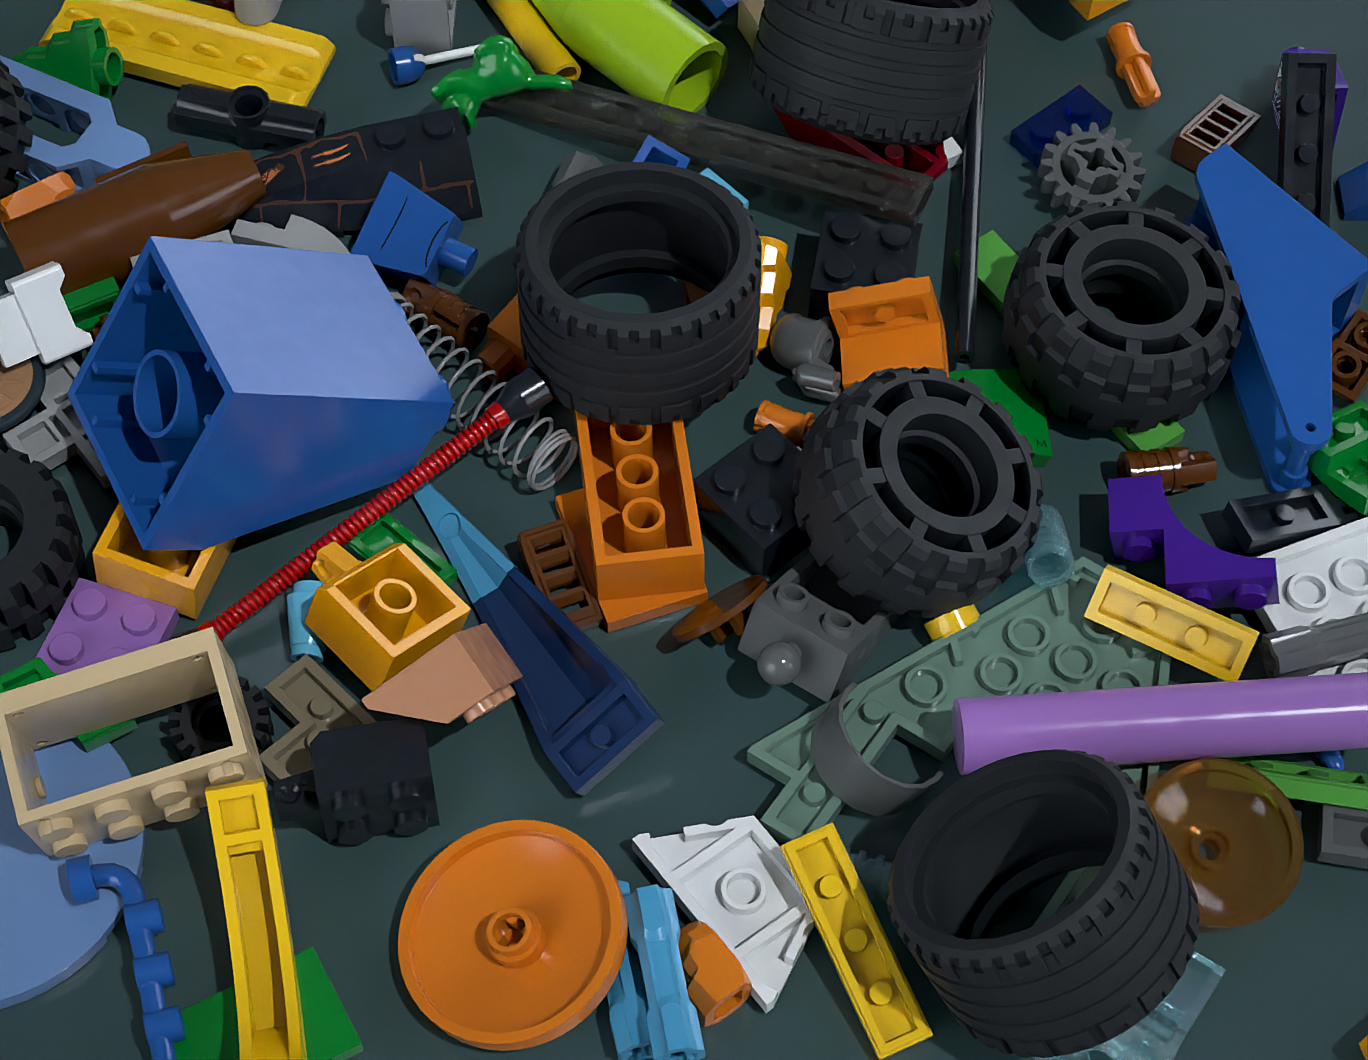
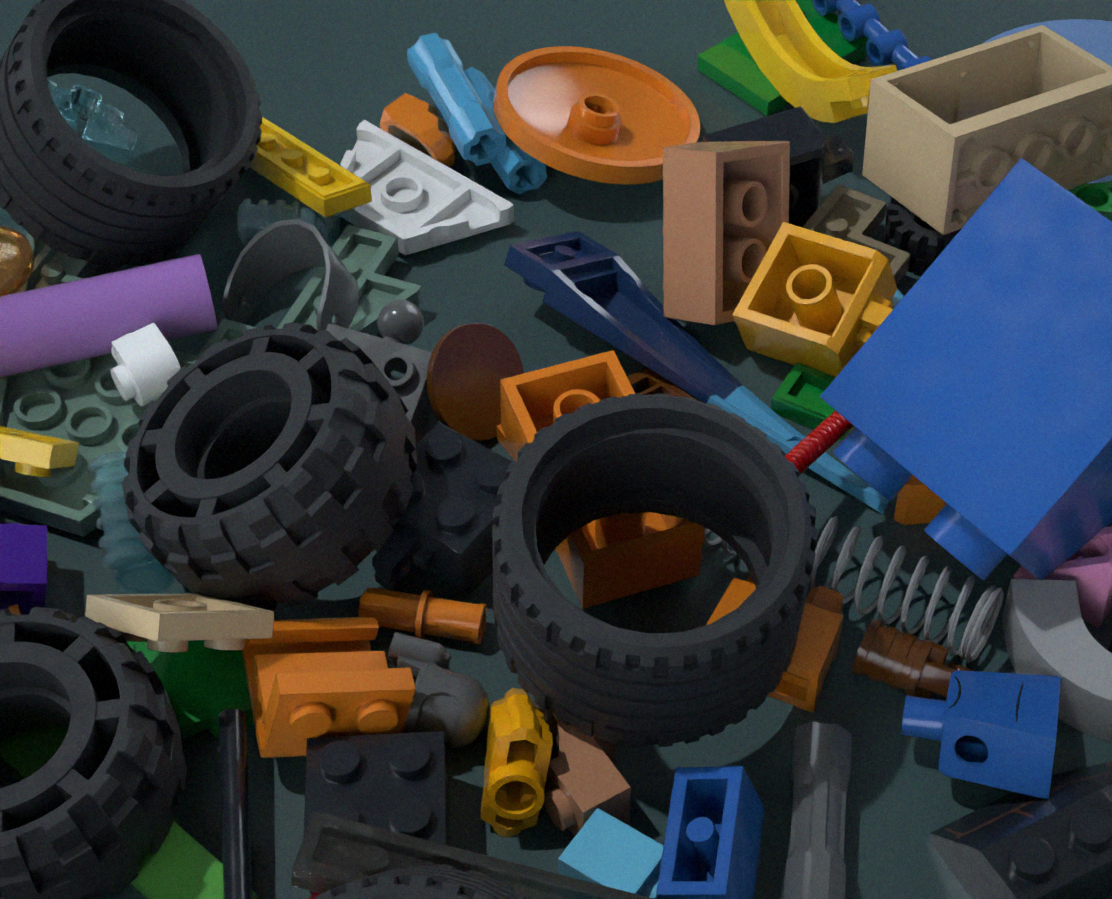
camera: 170 degrees right, 10 degrees down
(1009, 368) = (175, 619): none -> tan plate
(1020, 667) = (143, 364): none -> white plate

